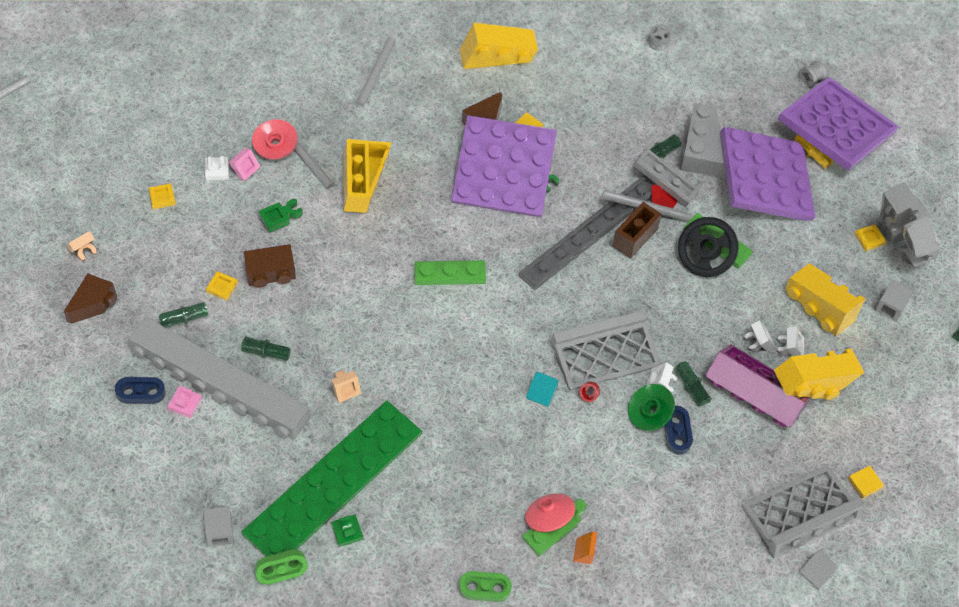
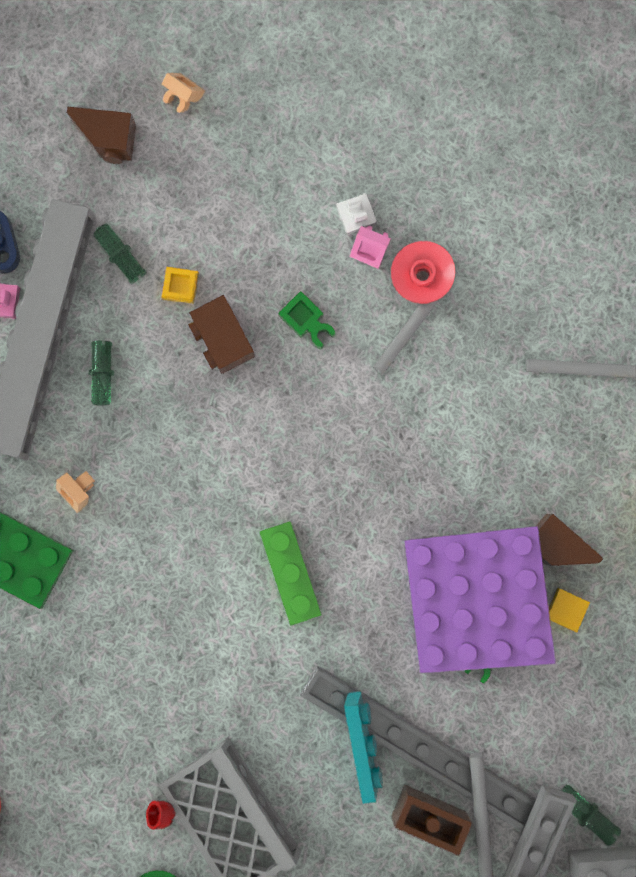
camera: 75 degrees right, 25 degrees up
(162, 196) = (291, 161): yellow tile -> none
(361, 172) = (403, 407): yellow wedge -> none
(542, 389) = (146, 748): teal slope -> none
(578, 254) = (363, 747): none -> teal plate
(662, 198) = (506, 837): red sticker -> none

